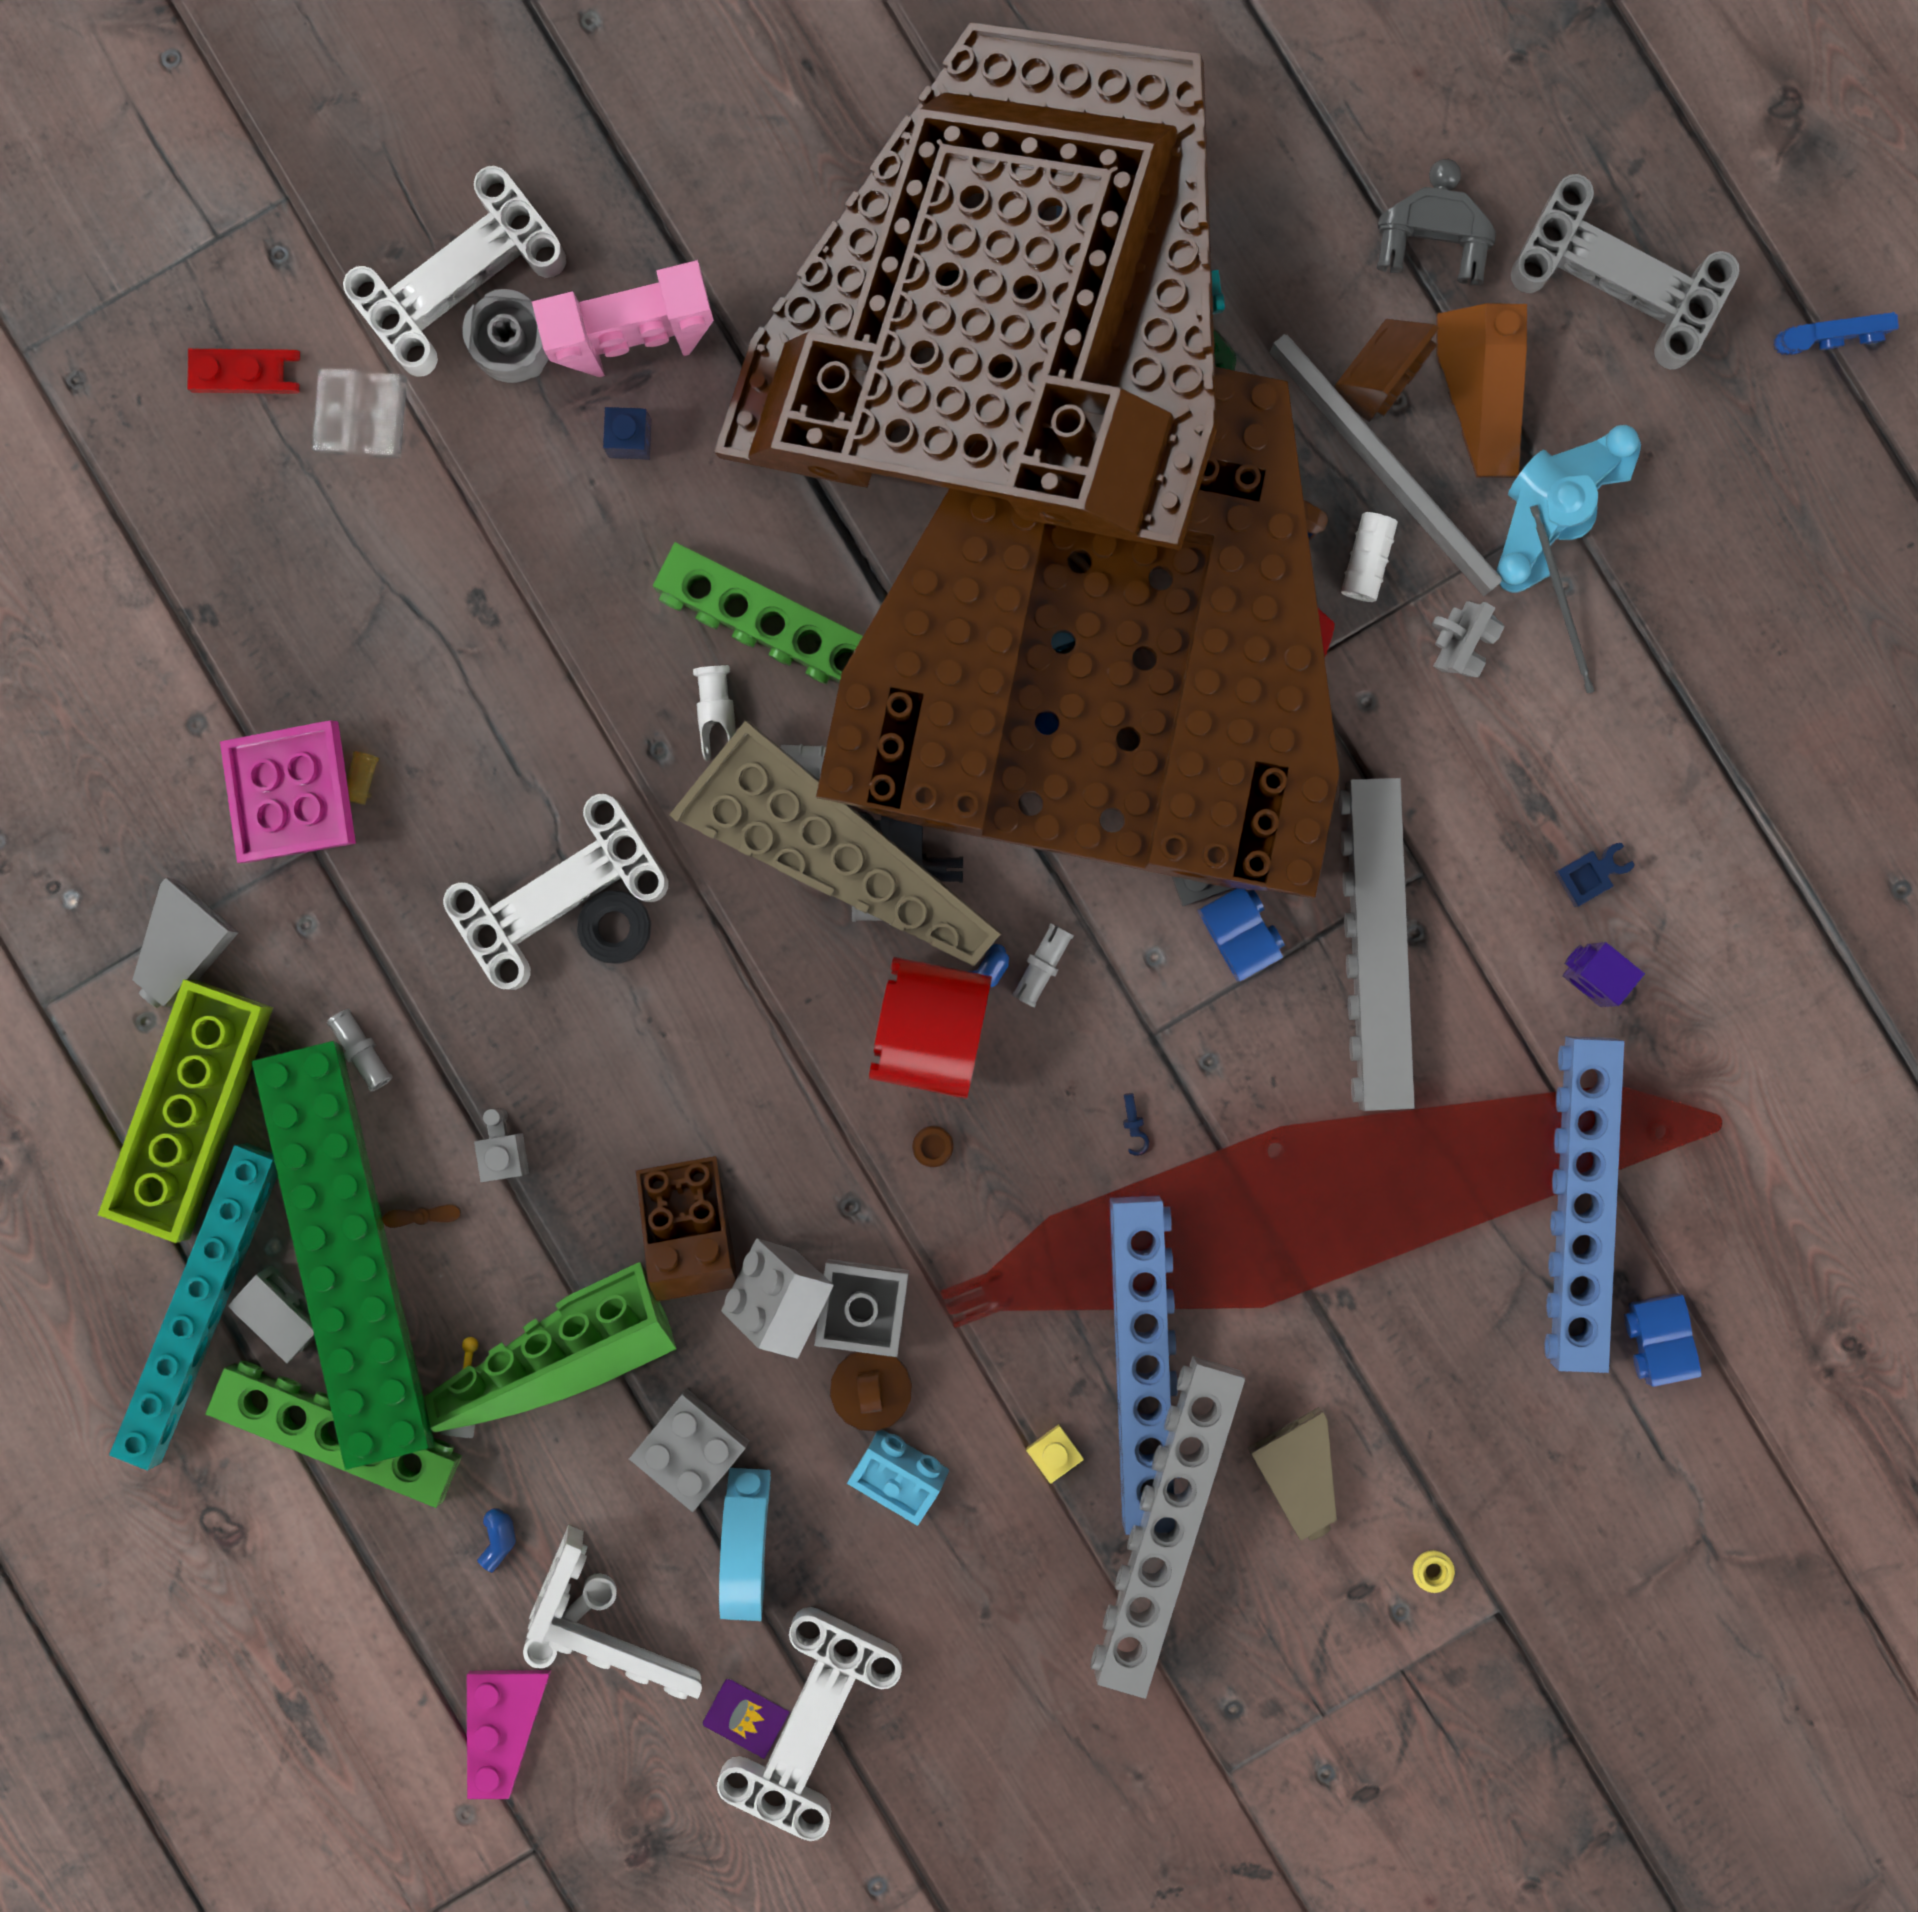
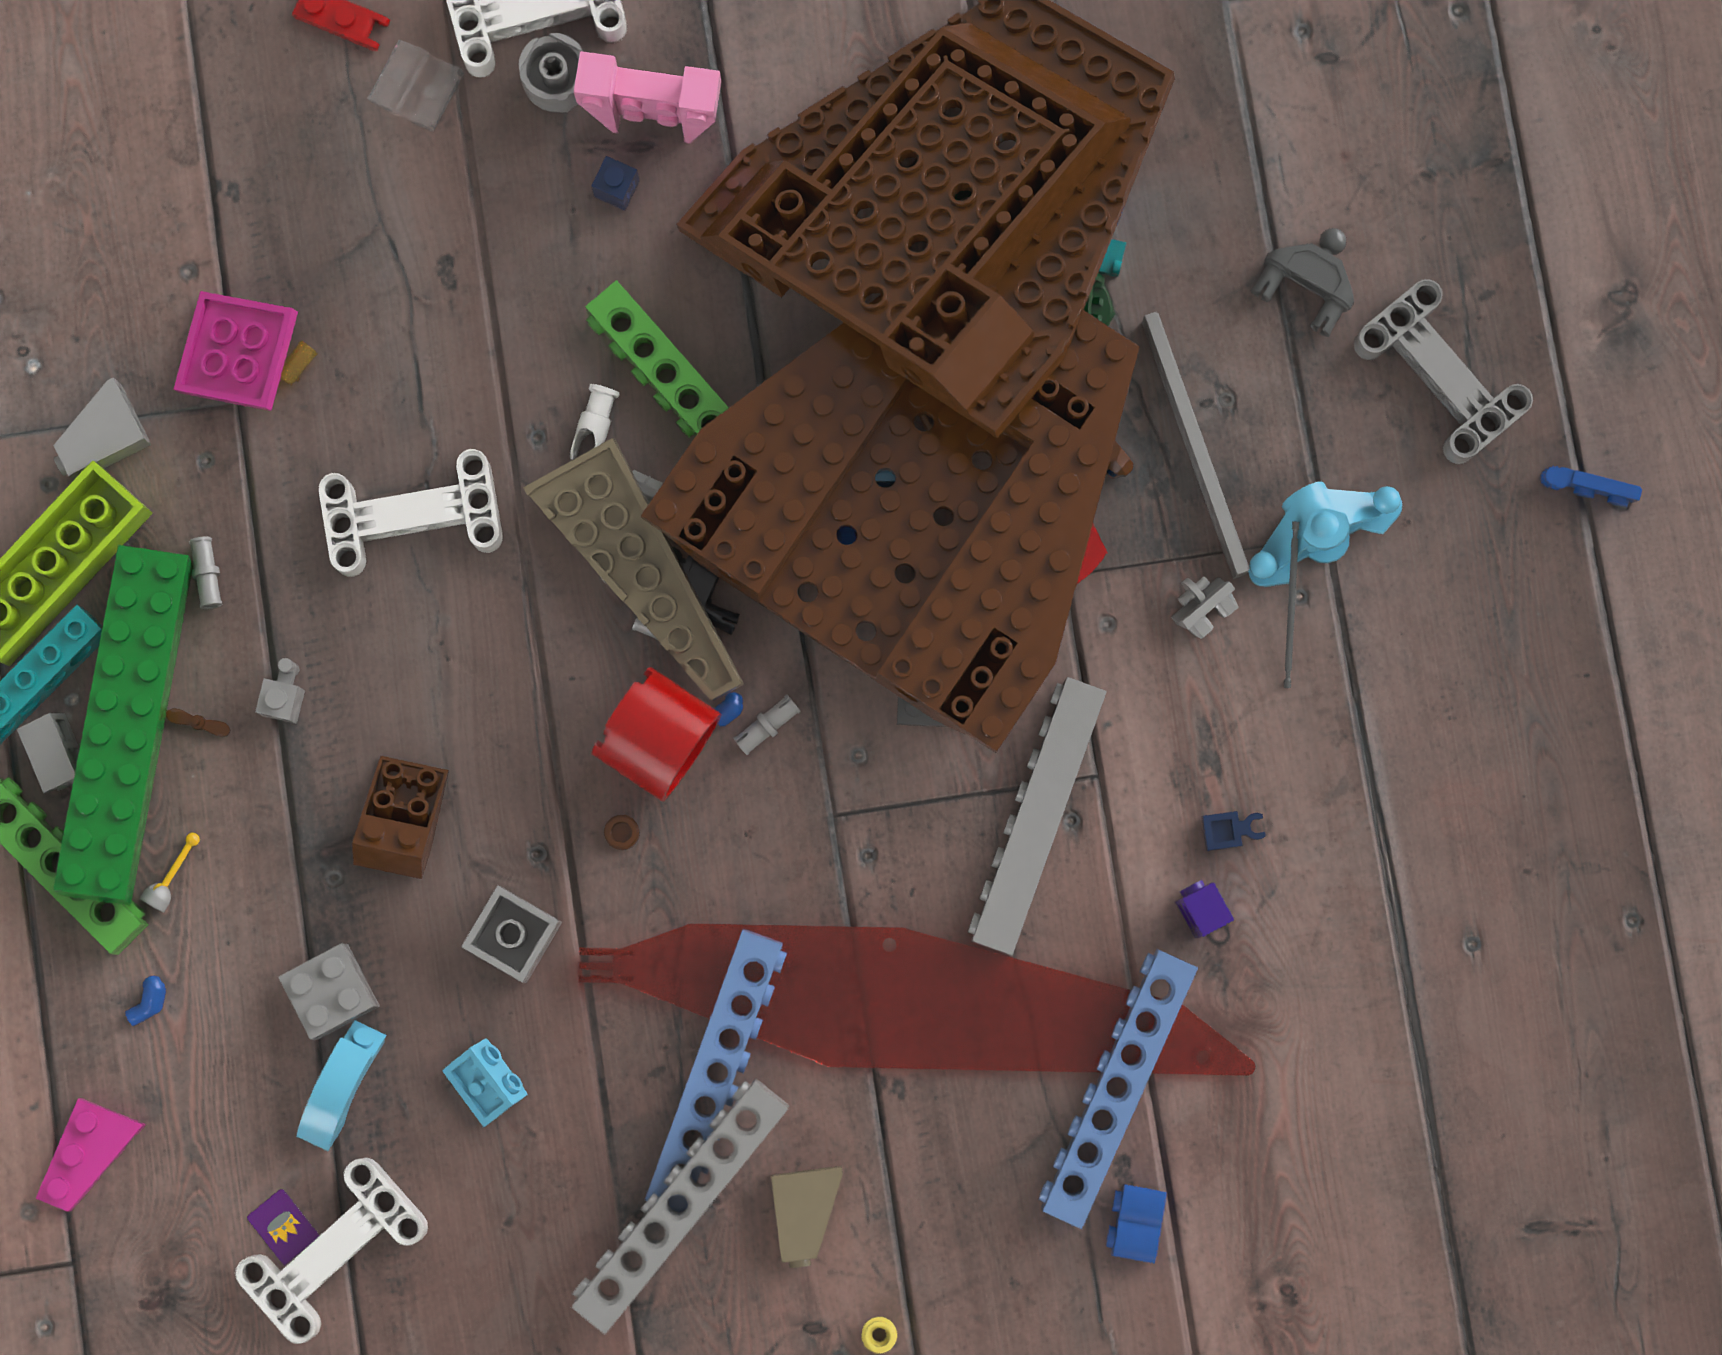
camera: 15 degrees right, 5 degrees down
(575, 1348) = (277, 875): bright green wedge -> none
(589, 924) = (425, 549): black tyre -> none
(597, 1594) = (148, 1099): white bar -> none
(601, 1649) = (192, 1120): white bracket -> none
(777, 1298) = (447, 897): light grey brick -> none
(870, 1390) = (492, 1004): reddish brown tile -> none
(1054, 1454) = (616, 1115): light yellow plate -> none
(1133, 1124) = (788, 878): dark blue hand -> none
(1241, 933) = (933, 762): blue brick -> none
(1369, 557) = (1154, 511): white axle -> none
(1386, 366) = (1223, 367): reddish brown slope -> none
(1485, 371) = (1301, 407): dark orange wedge -> none

